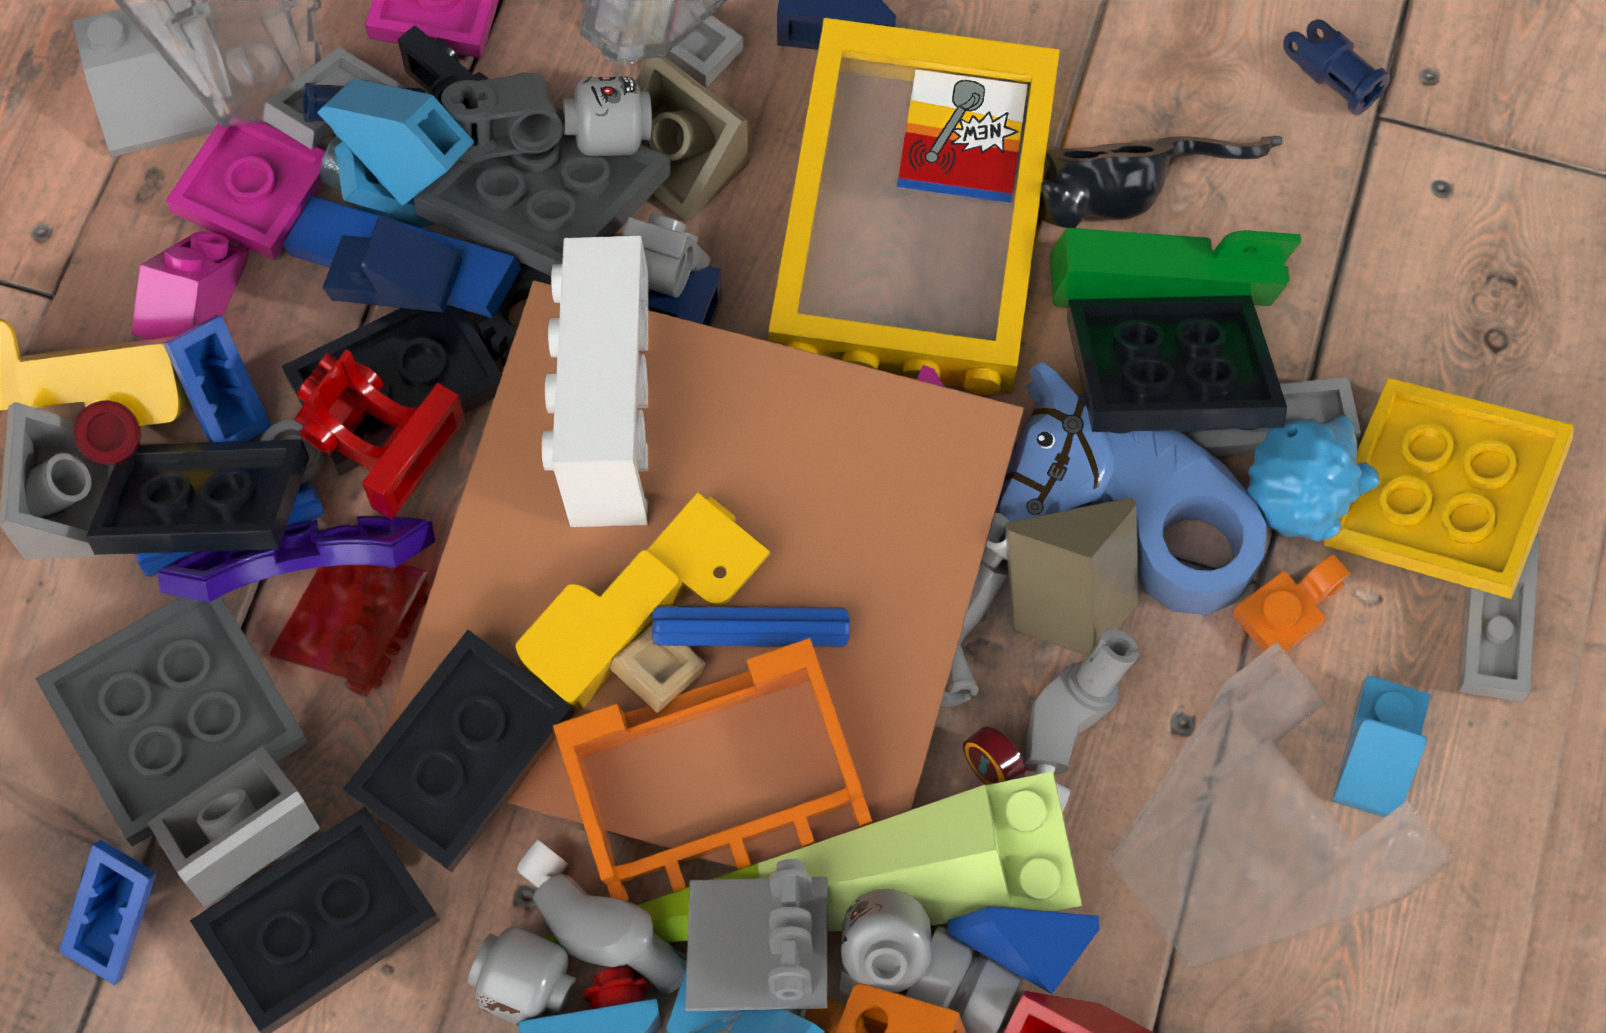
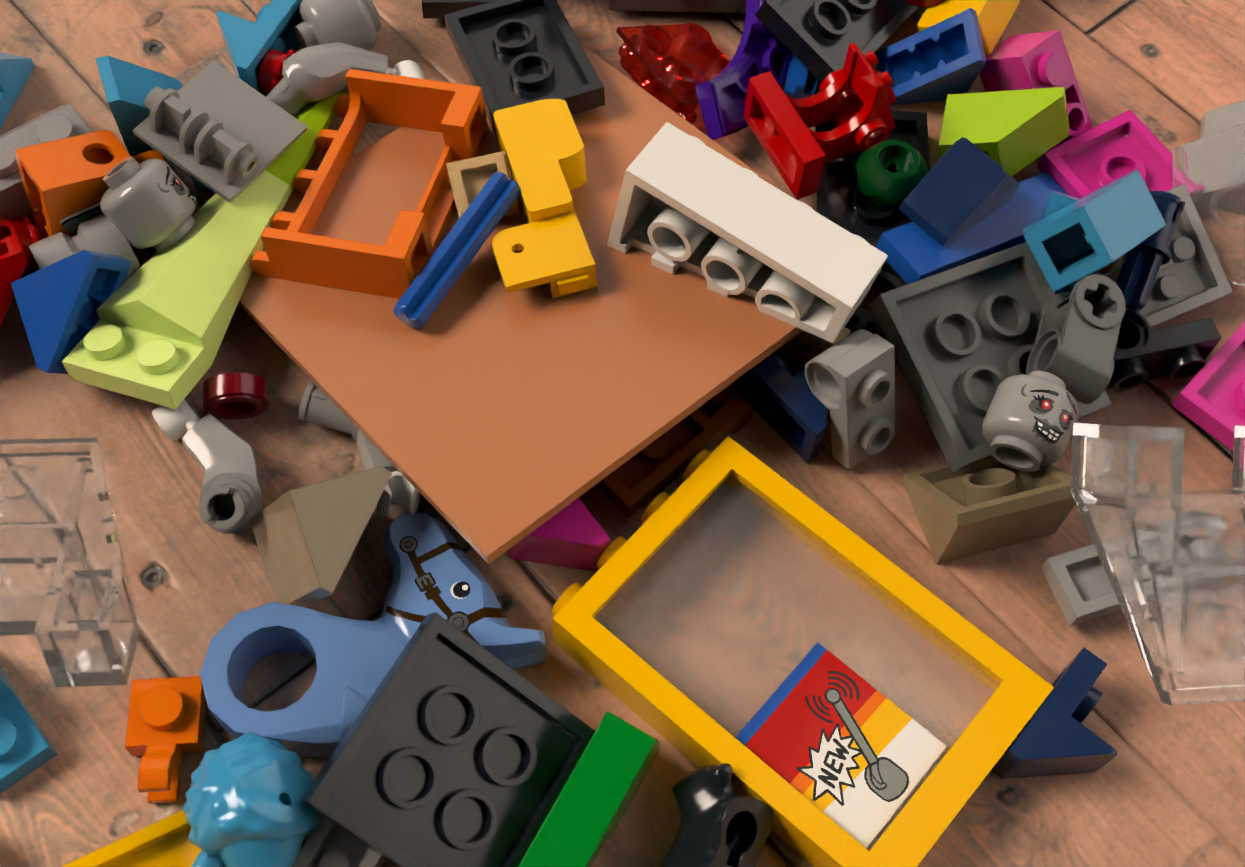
camera: 120 degrees right, 5 degrees down
(280, 290) = (1007, 125): none -> lime slope
(405, 361) = (889, 172): none -> dark green plate

